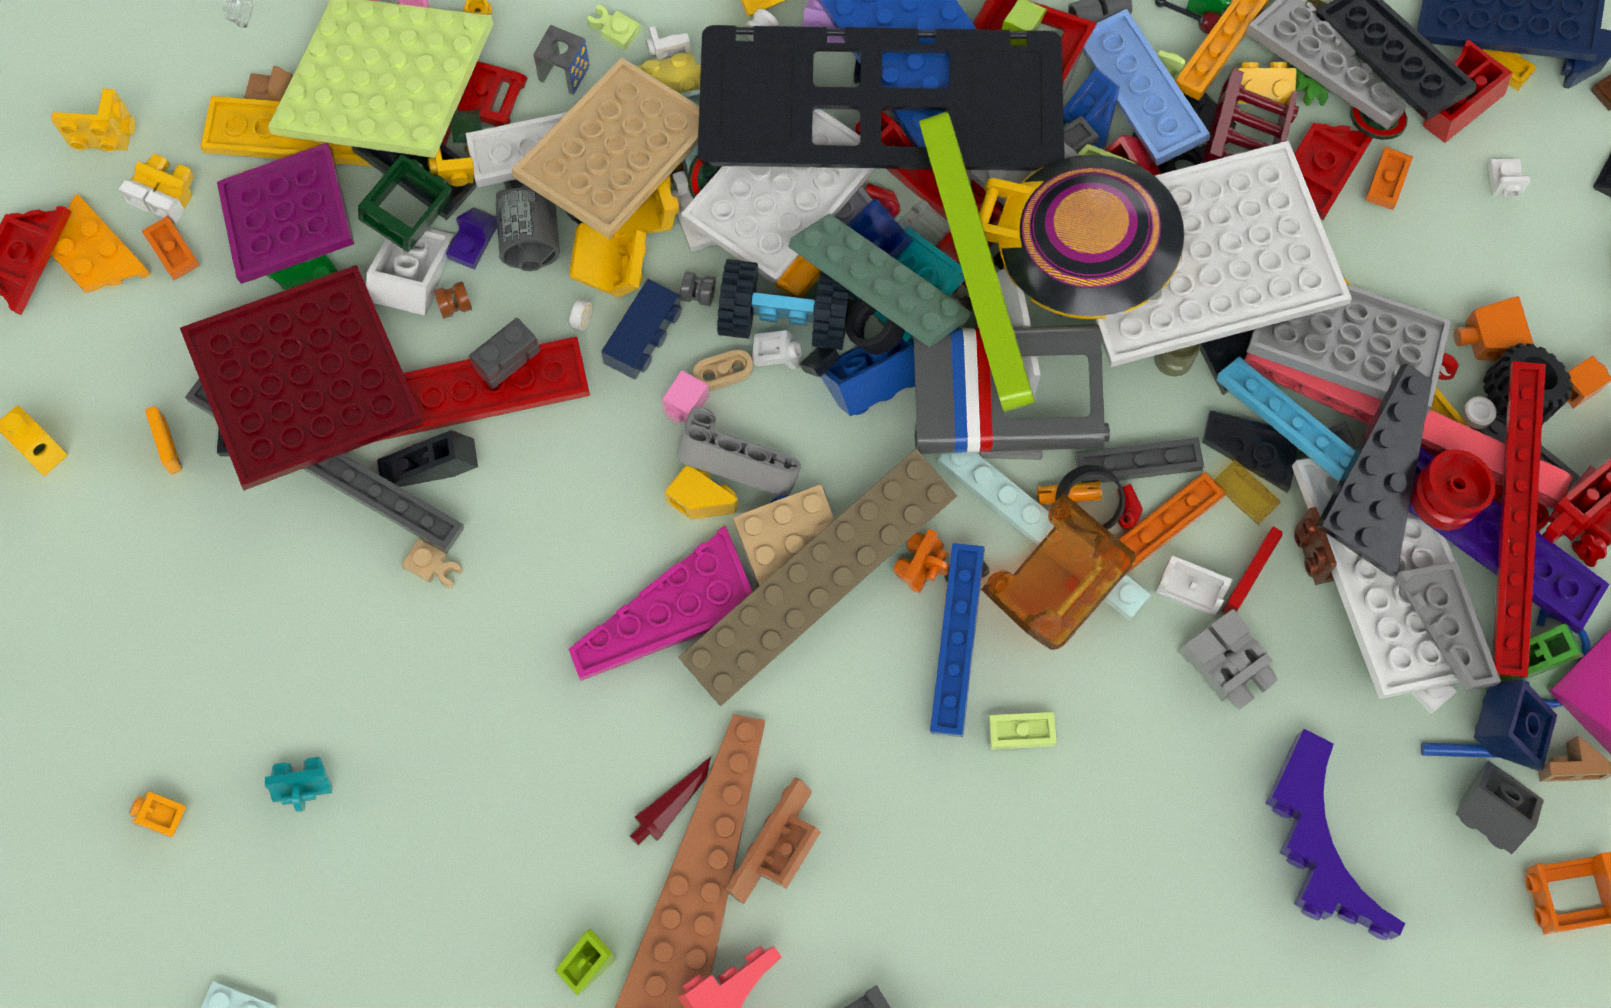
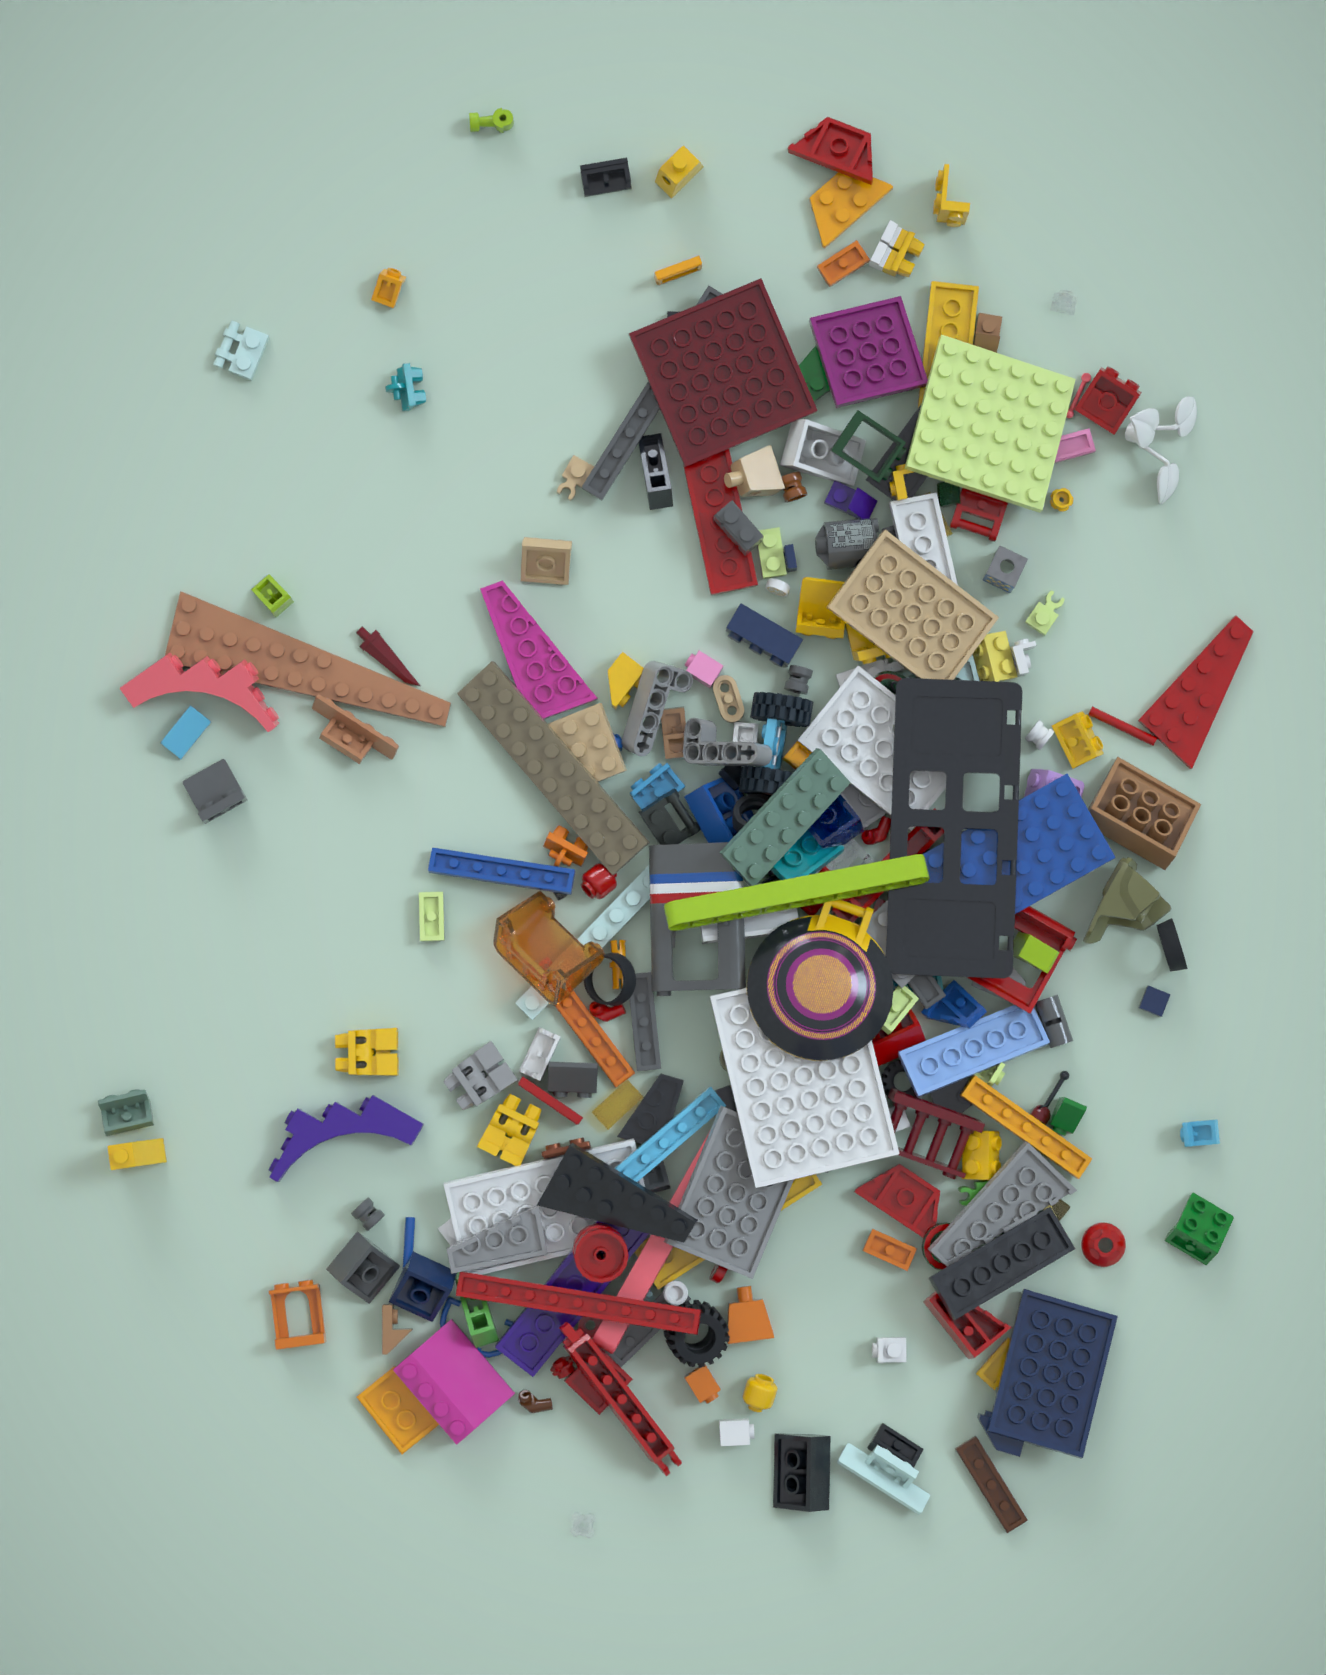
camera: 85 degrees right, 15 degrees up
(29, 533) = (605, 177): none -> black hinge
(435, 338) = (756, 474): none -> tan torso
(542, 593) = (546, 560): none -> tan bracket
(543, 301) = (790, 559): none -> dark blue tile
(545, 324) = (771, 554): none -> yellowish green plate
(775, 432) = (673, 729): none -> medium nougat slope
(792, 356) = (702, 749): none -> light grey beam
(841, 451) = (658, 784): none -> dark azure bracket
(885, 443) = (662, 824): none -> pearl dark grey plate
(964, 519) = (598, 882): none -> red head
(1213, 798) = (379, 1039): none -> yellow hips
(1220, 539) = (572, 1077): none -> dark grey slope
(1285, 621) = (516, 1147): none -> yellow hips
(1428, 802) = (363, 1210): none -> dark grey wheel
(1584, 316) = (760, 1392): none -> yellow head

